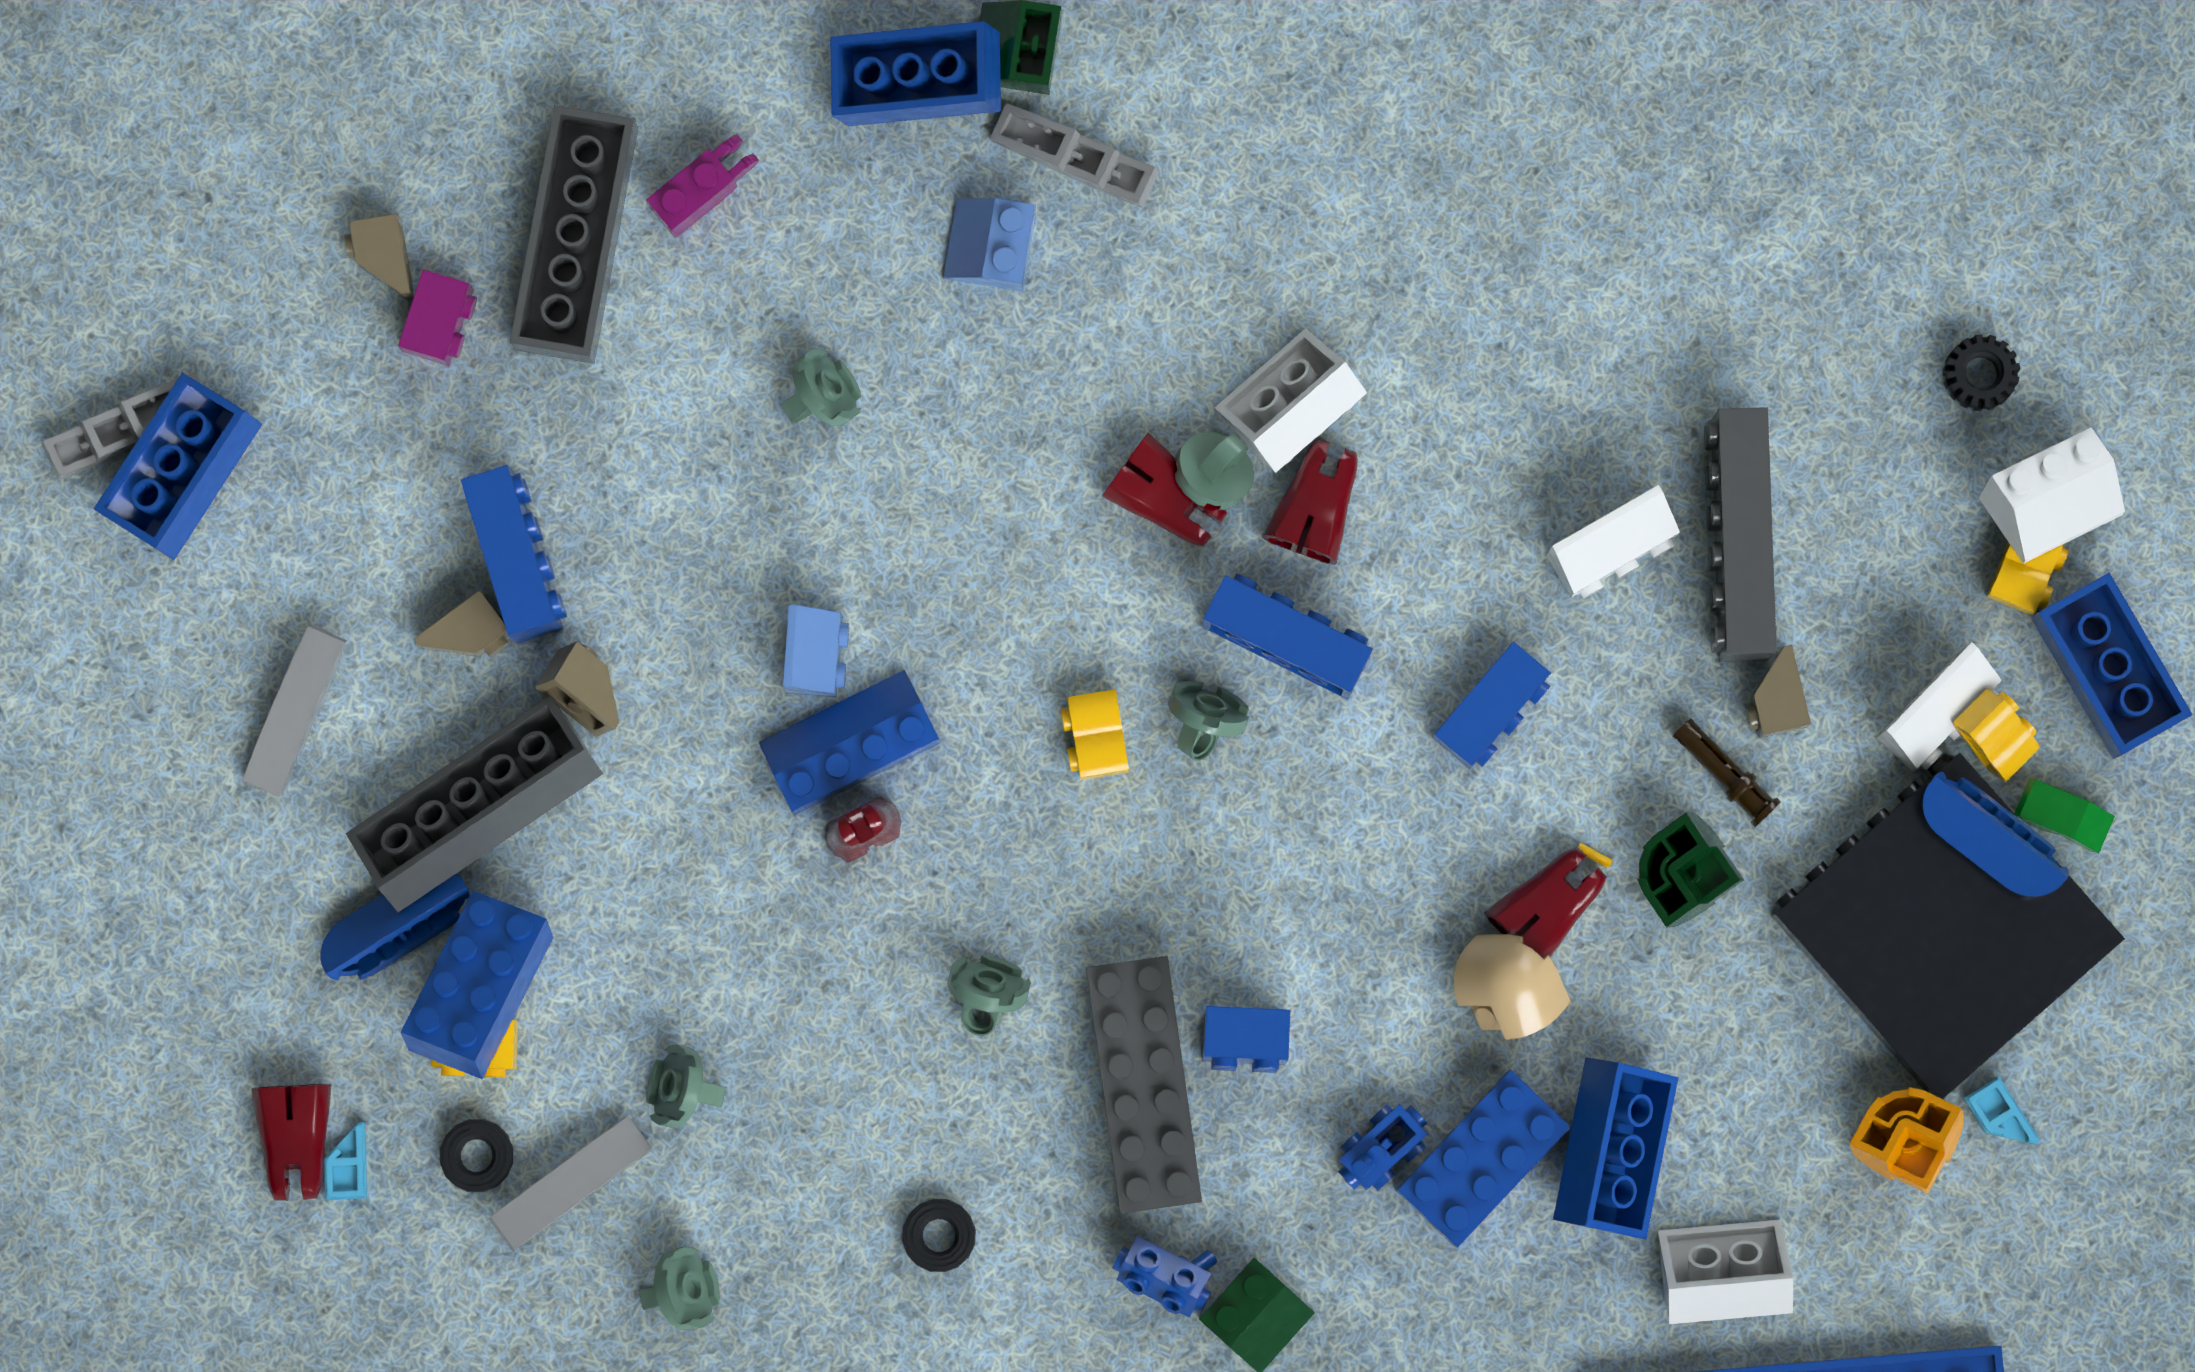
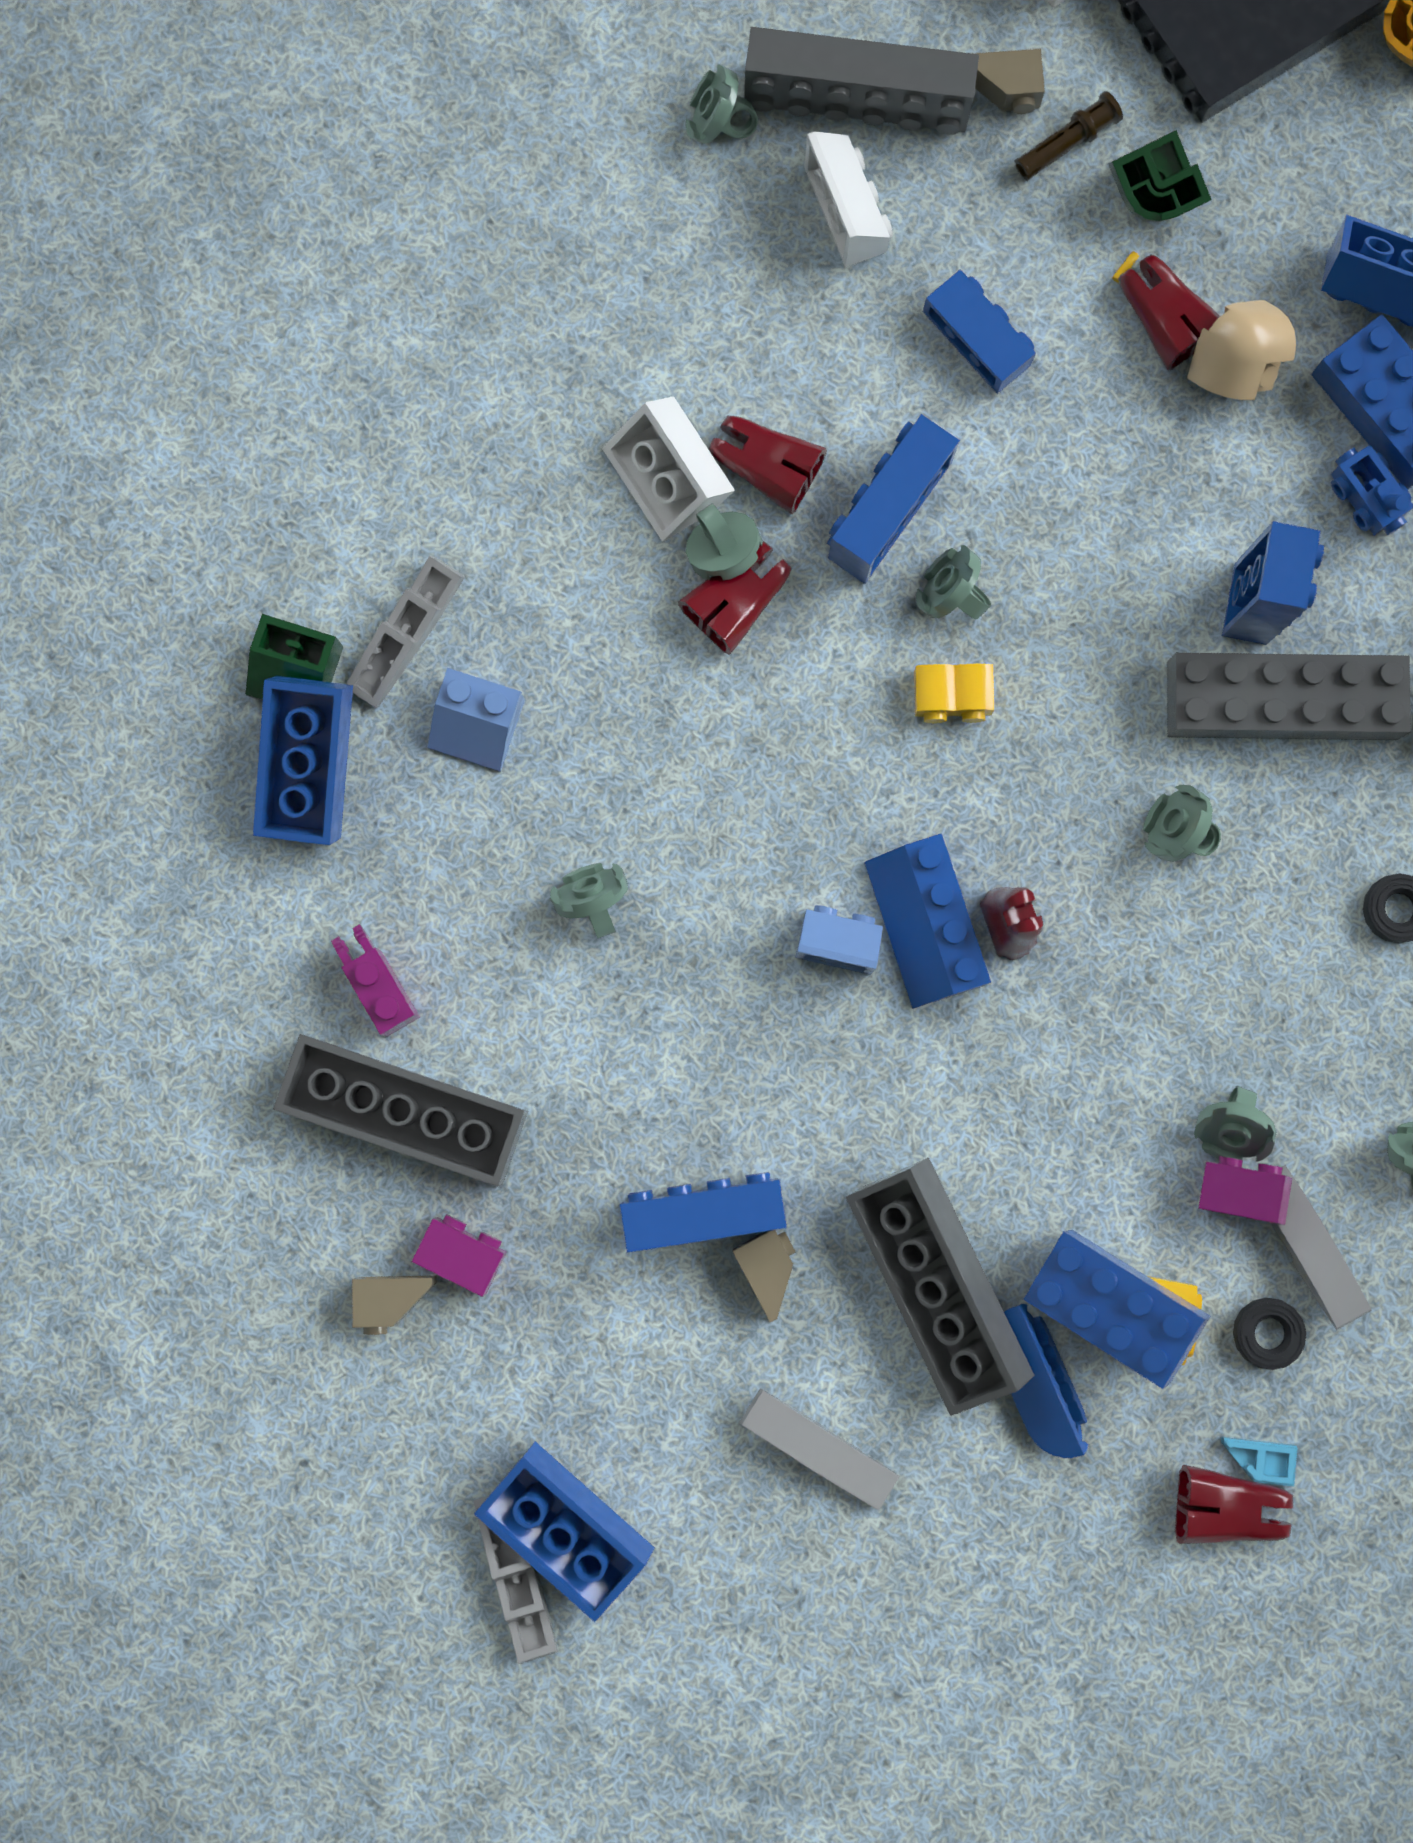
camera: 85 degrees left, 0 degrees up
(581, 688) = (839, 1167): dark tan slope -> none
(615, 1104) = (1246, 1192): none -> magenta brick
(1690, 389) = (715, 104): none -> sand green tile

